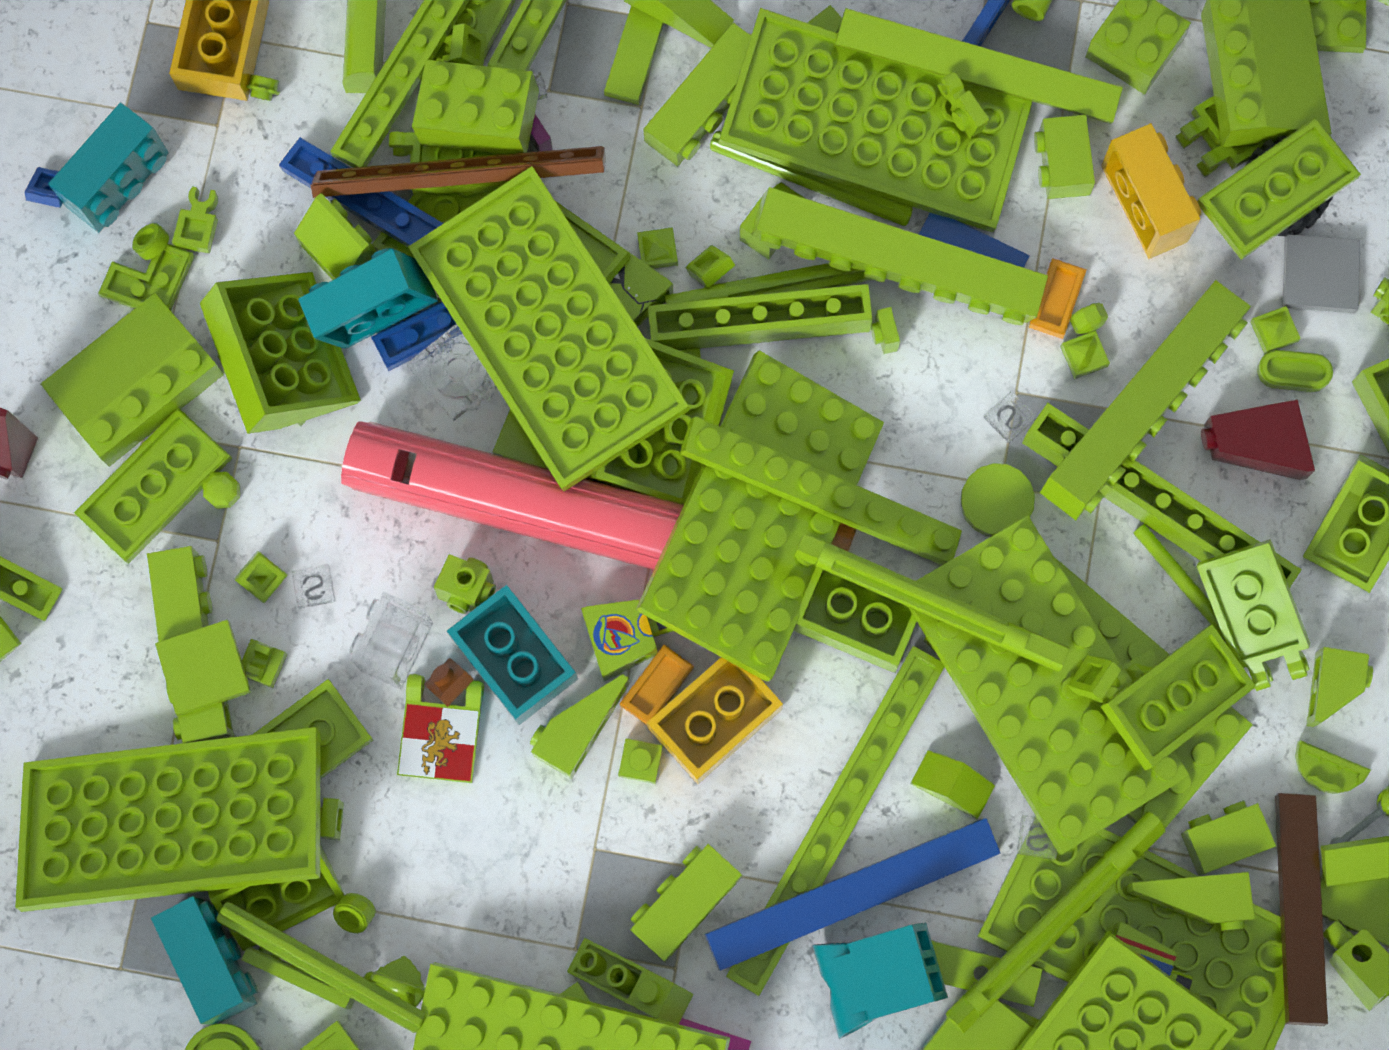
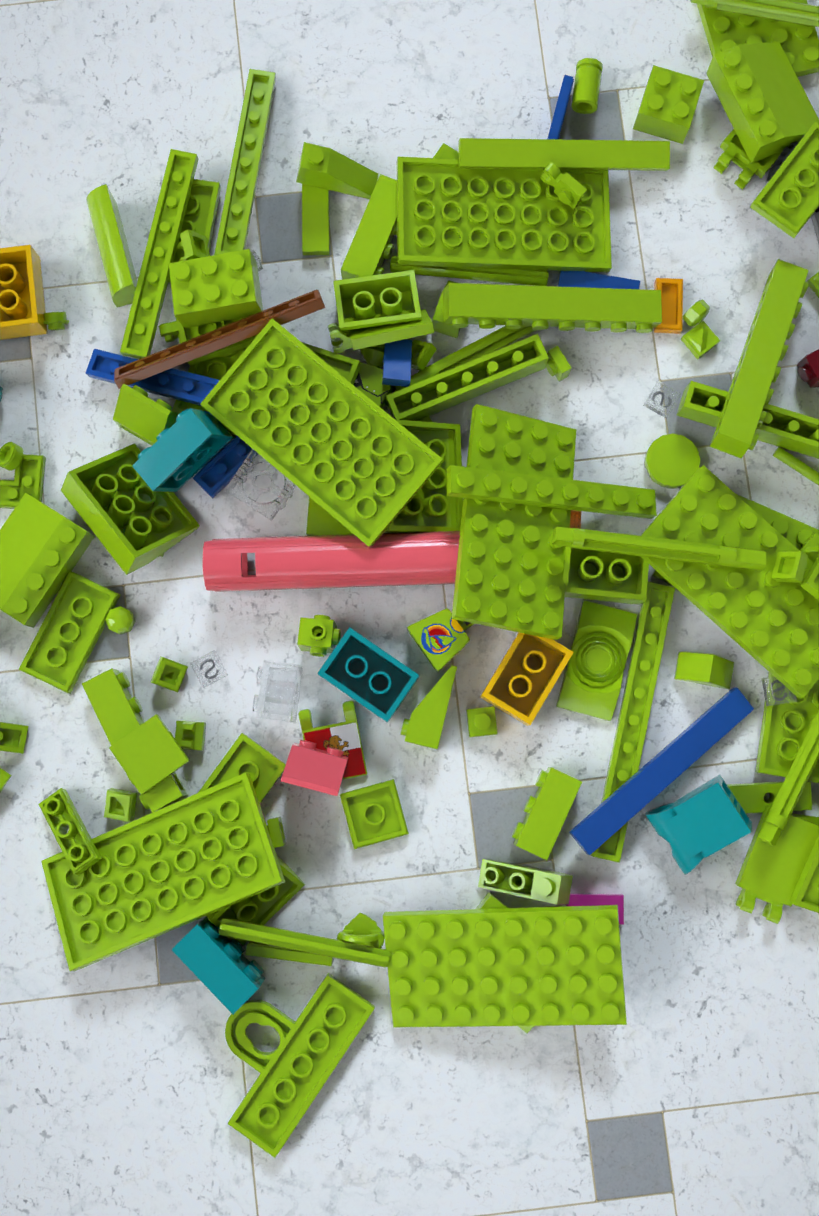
camera: 20 degrees left, 5 degrees up
(71, 736) = (75, 844): none -> lime tile
(145, 723) = (120, 805): none -> lime tile
(197, 227) = (39, 435): lime plate -> none
(354, 913) = (314, 893): lime tile -> none
(405, 750) = (315, 767): none -> coral slope
(448, 681) = (328, 708): dark orange plate -> none
(463, 836) = (374, 814): none -> lime tile
(540, 137) = (268, 297): magenta tile -> none
(656, 684) = (476, 665): light orange tile -> none
(668, 221) = (378, 335): none -> lime tile
(676, 182) = (377, 300): none -> lime slope
(677, 267) = (397, 363): none -> blue tile
(815, 728) = (598, 660): none -> lime slope
(1065, 157) = (643, 202): lime brick -> none
(1151, 190) = (713, 208): yellow brick -> none

